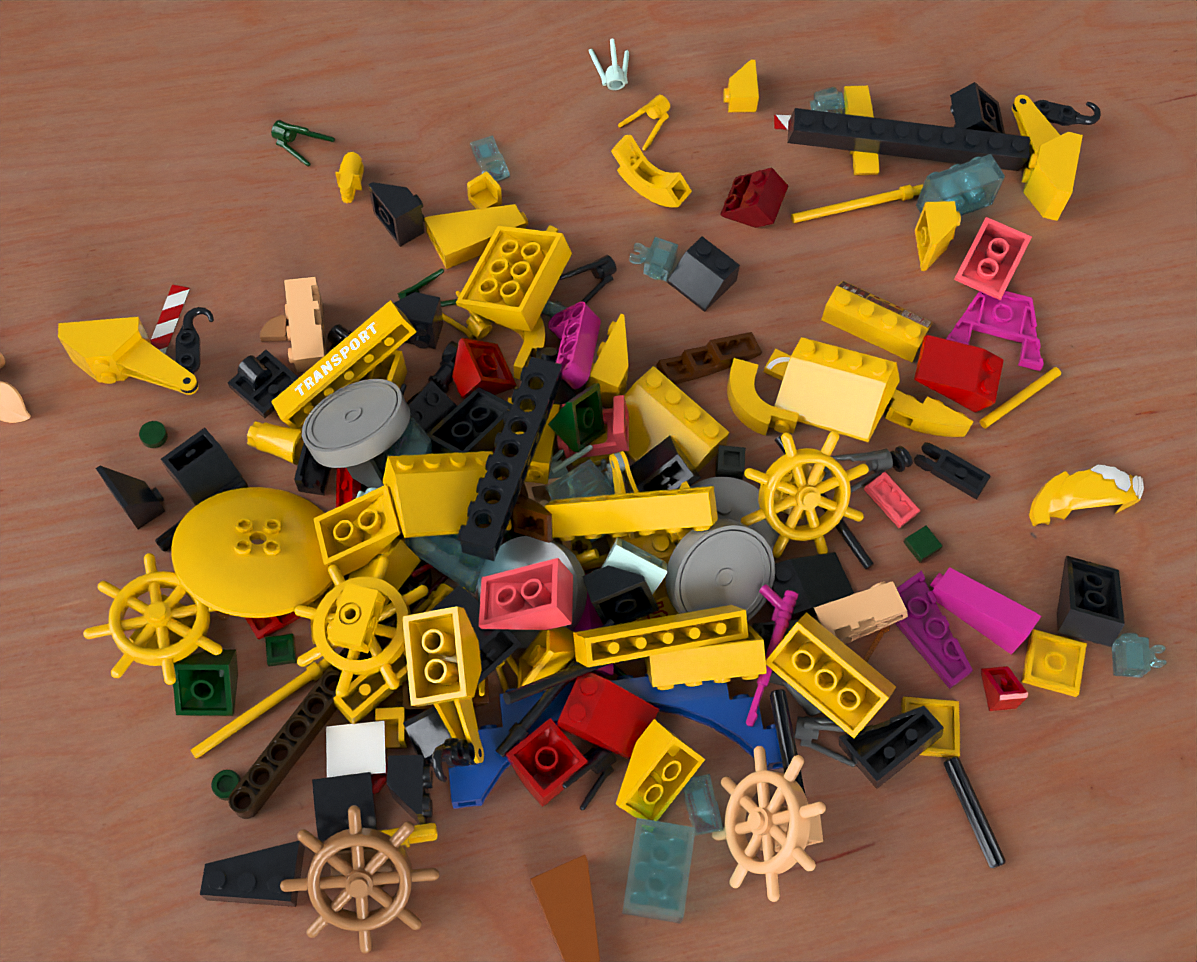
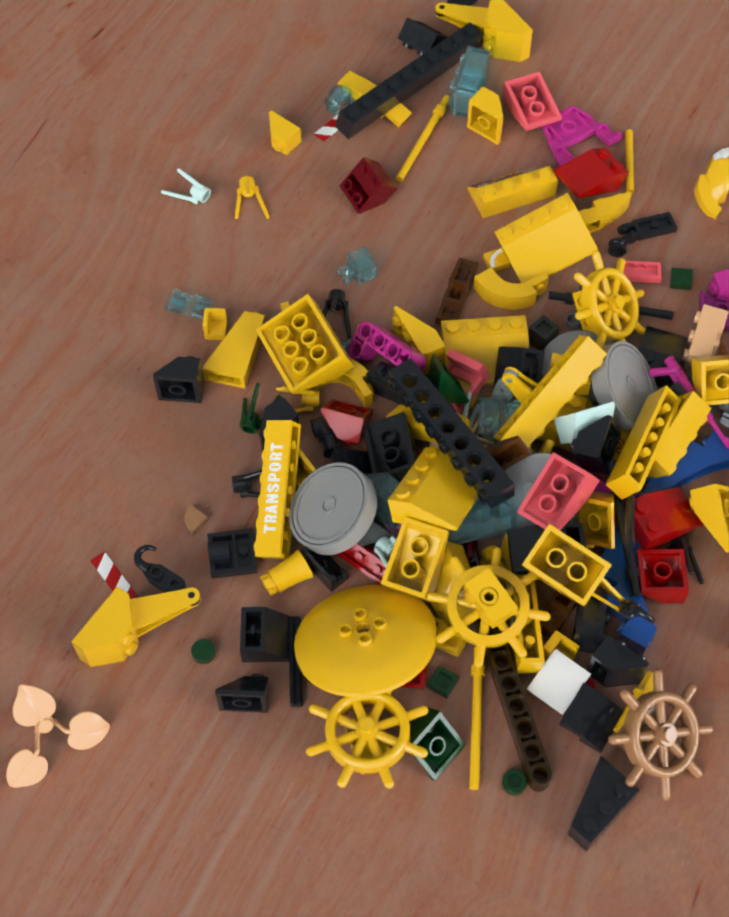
camera: 45 degrees left, 5 degrees down
(287, 133) = (41, 404): dark green plant -> none
(306, 323) = (214, 497): light nougat wedge -> none
(350, 176) = (119, 391): yellow arm -> none
(646, 179) = (298, 230): yellow arch -> none
(704, 274) = (395, 250): black slope -> none
(875, 460) = (609, 259): dark grey plant -> none

